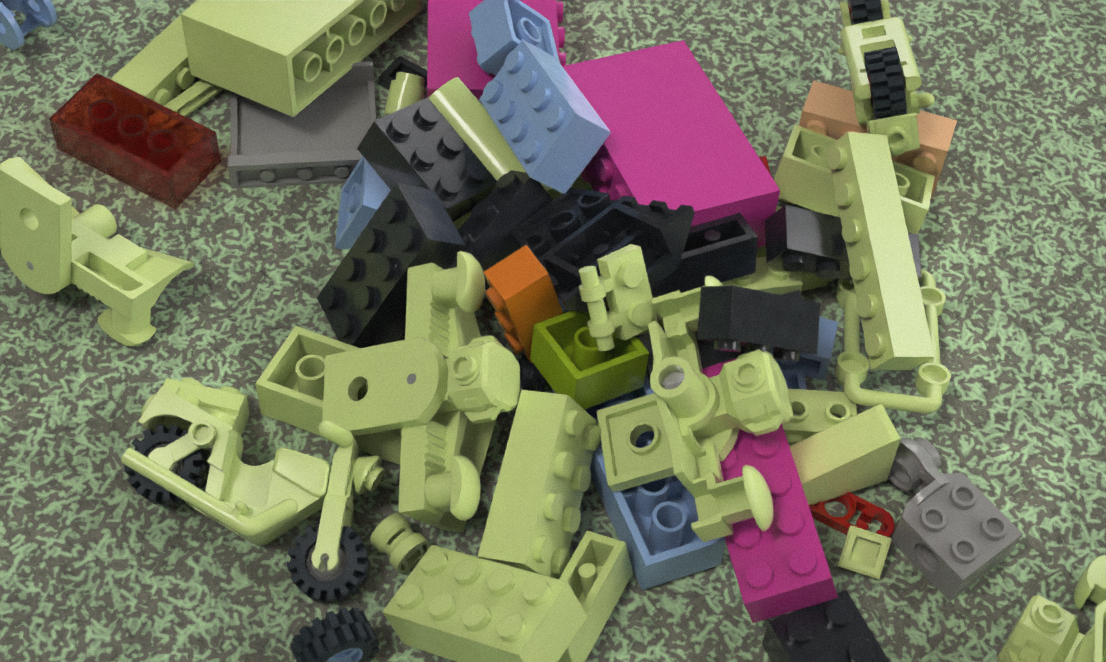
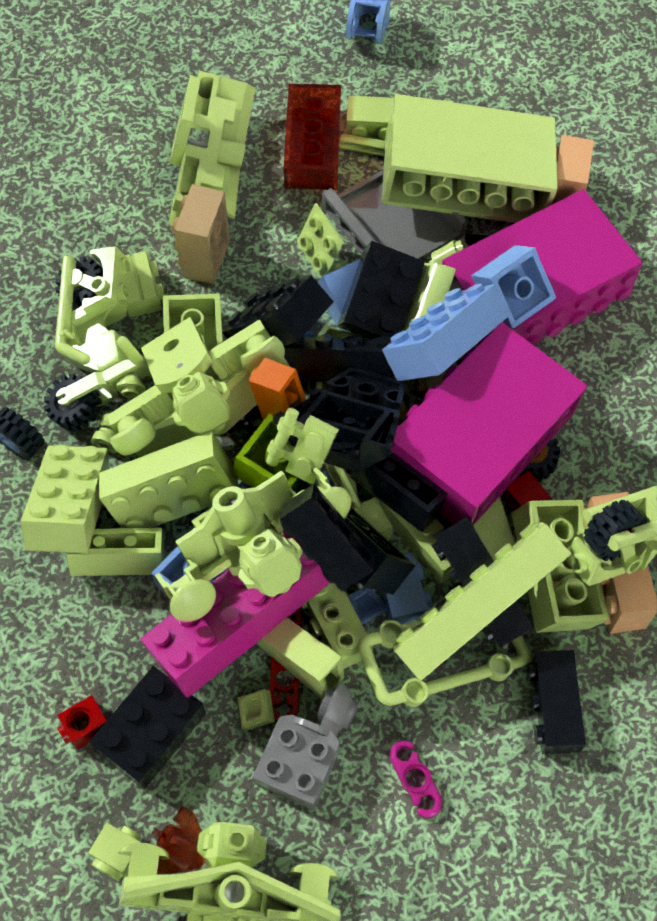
camera: 65 degrees right, 10 degrees up
(202, 299) = (201, 233): none -> tan brick
(295, 200) = (321, 242): none -> yellowish green hinge
(993, 270) = (556, 702): none -> black brick
(1004, 447) = (427, 789): none -> dark pink piece

